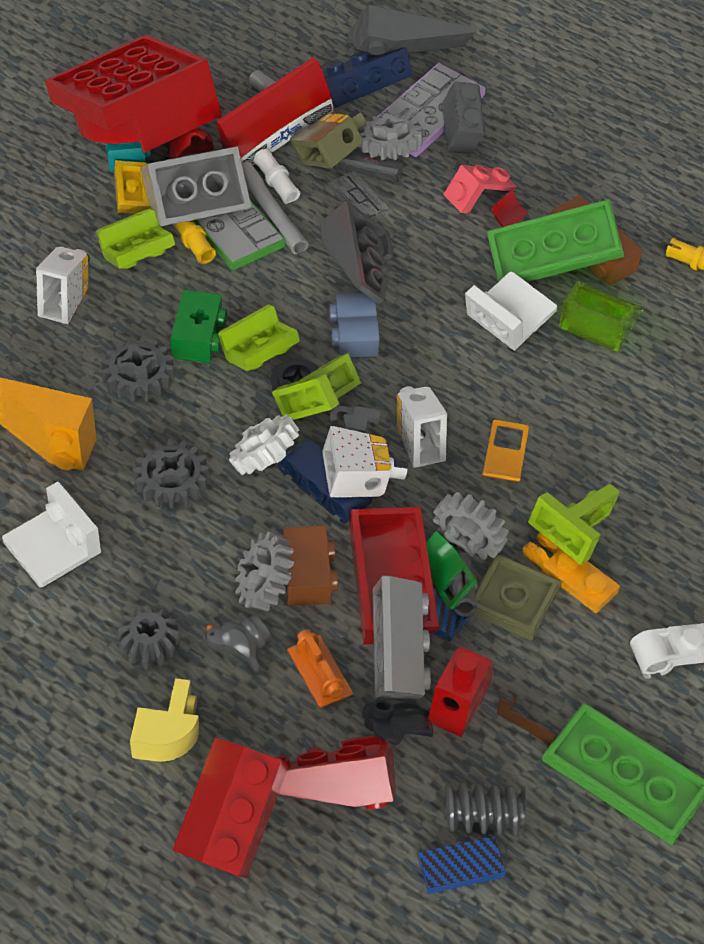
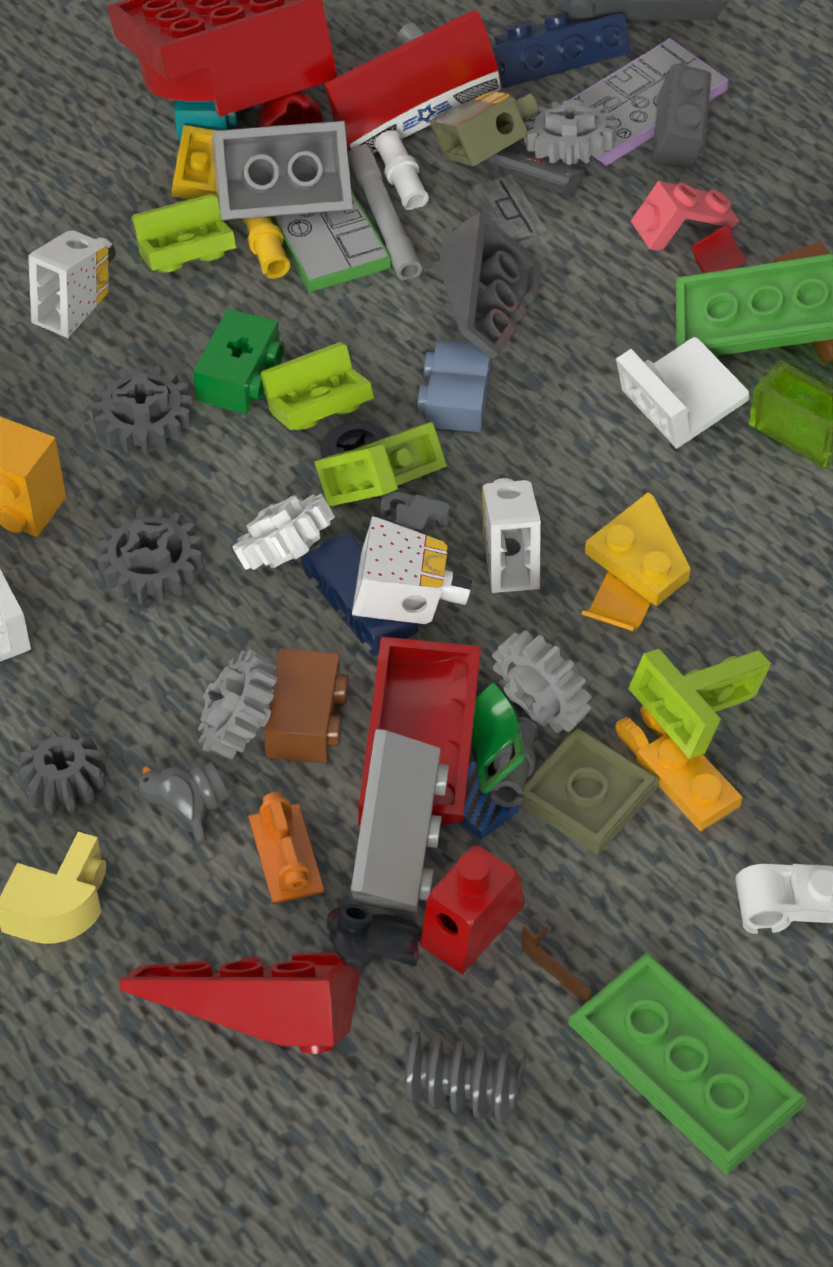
camera: 15 degrees right, 0 degrees up
(230, 807) = (109, 1021): red slope -> none
(461, 864) = (414, 1151): tile -> none
(509, 425) = (641, 551): none -> yellow wing

